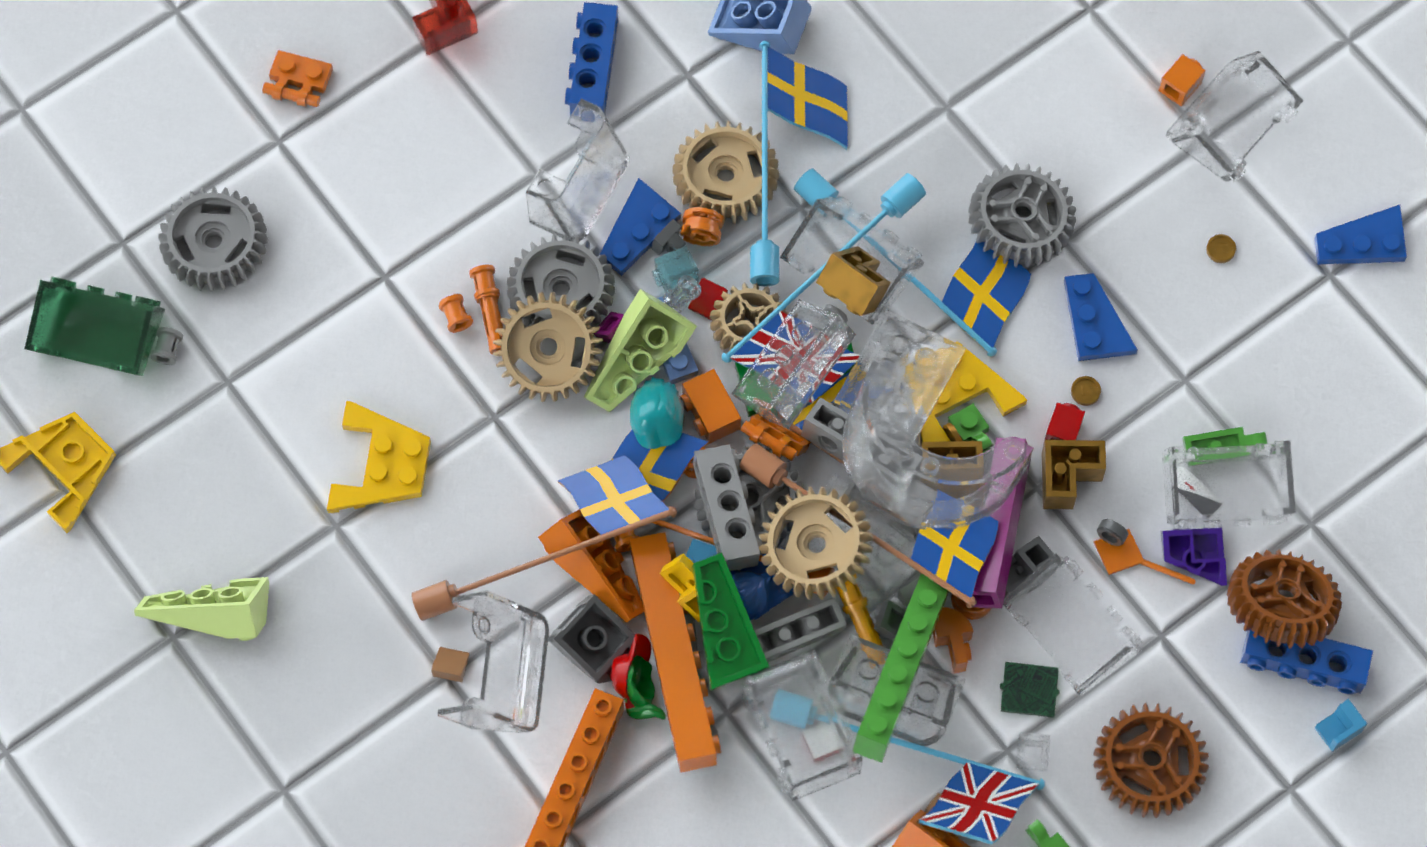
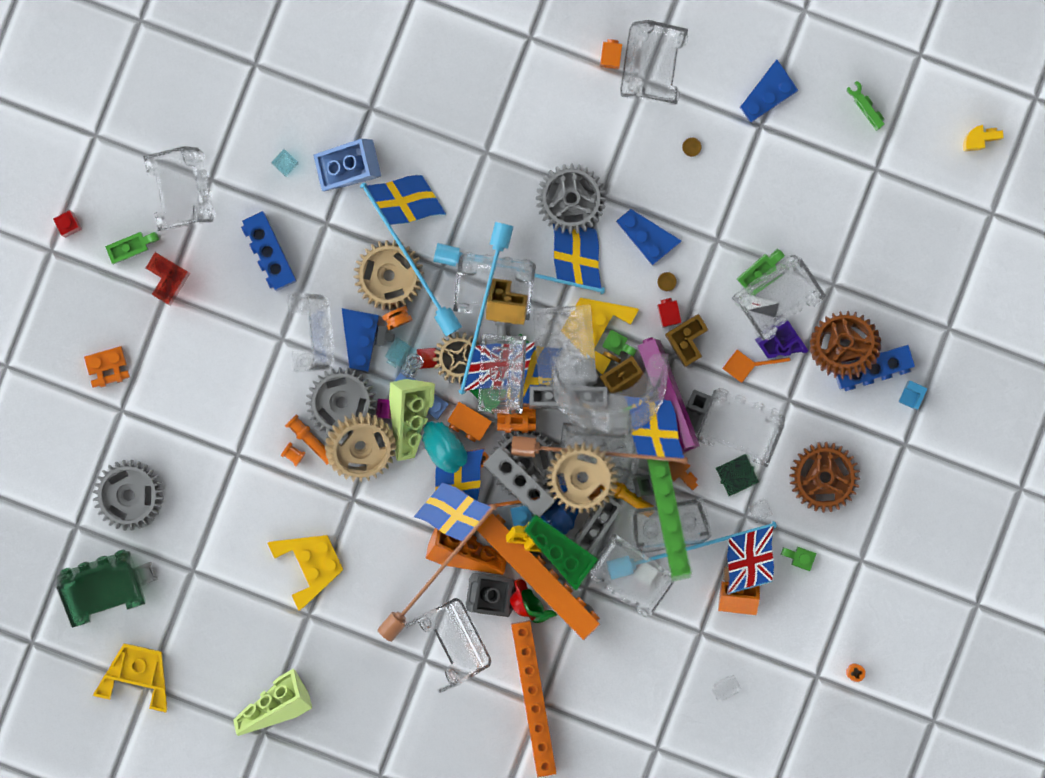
camera: 35 degrees left, 20 degrees up
(450, 664) = (422, 654): medium nougat slope -> none
(1112, 532) = (730, 360): dark grey tile -> none

